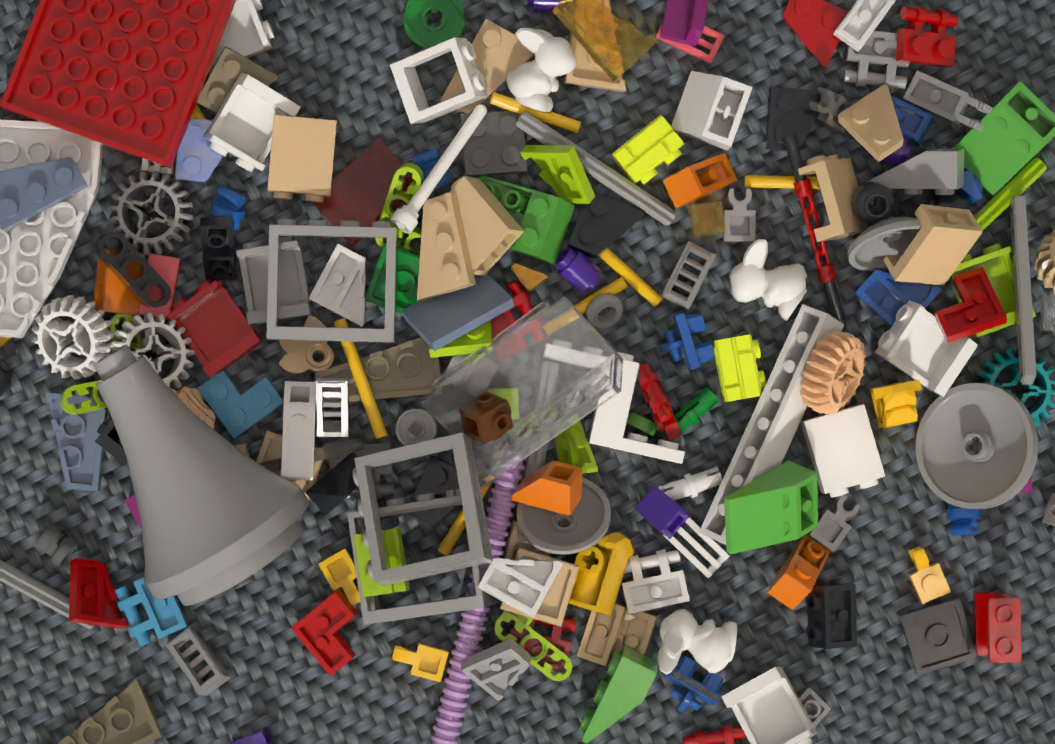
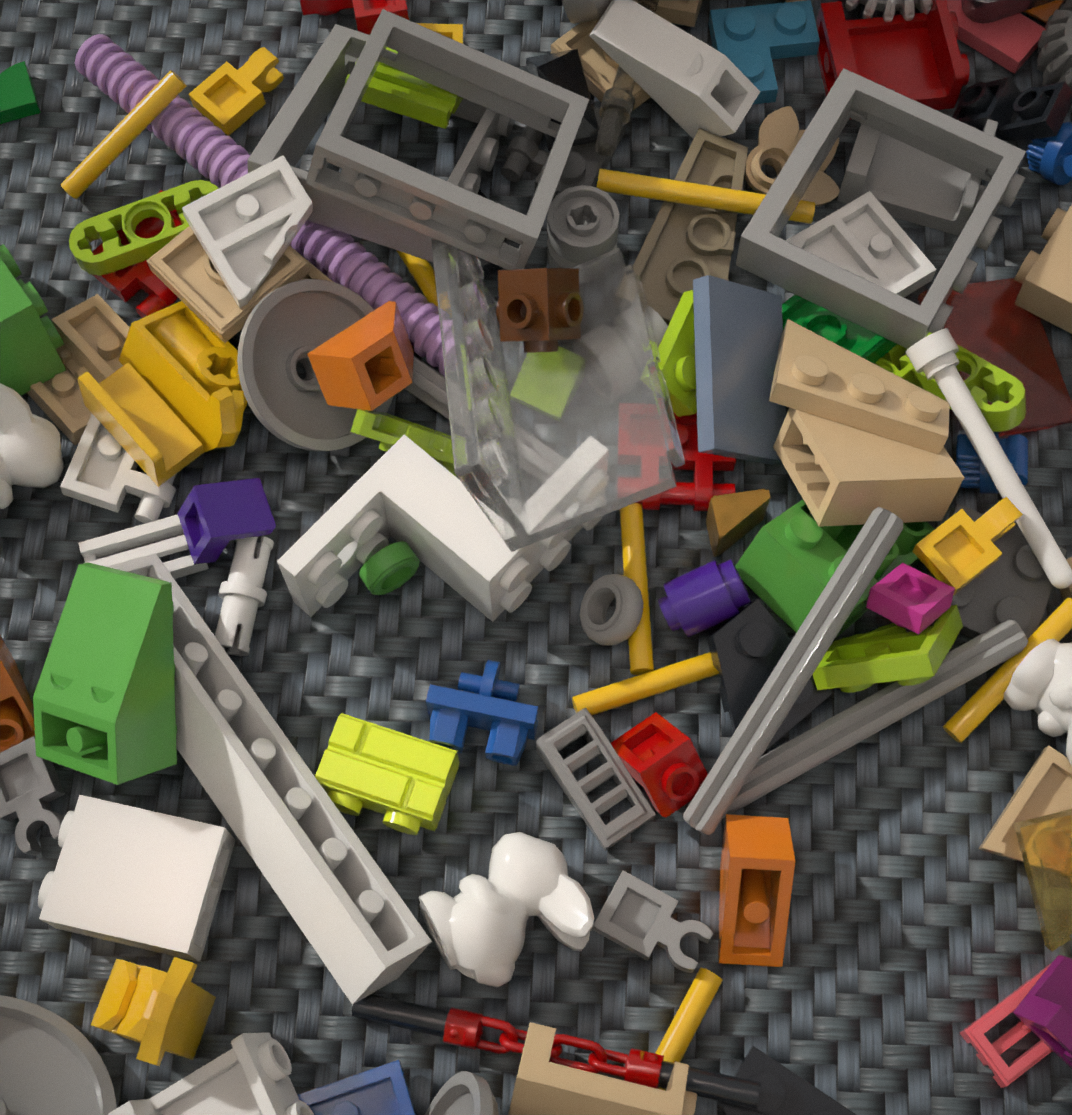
camera: 125 degrees right, 20 degrees down
(332, 428) = (660, 132): slope -> none
(485, 697) = (123, 134): none -> yellow bar
(496, 161) = (965, 548): none -> yellow plate
(497, 667) = (155, 158): light grey wing -> none
(534, 173) = (910, 598): none -> dark pink plate
(599, 208) = (793, 671): none -> light grey axle
(638, 581) = (141, 422): none -> yellow panel
(648, 150) = (854, 825): neon yellow brick -> none
(659, 403) = (406, 596): red plate -> none
(666, 250) = (662, 762): none -> red bracket
(691, 412) = (359, 654): green pin -> none
(706, 220) = (677, 854): clear yellow brick -> none
(711, 109) = (876, 981): white slope -> none
(833, 372) = (276, 925): light nougat gear -> none

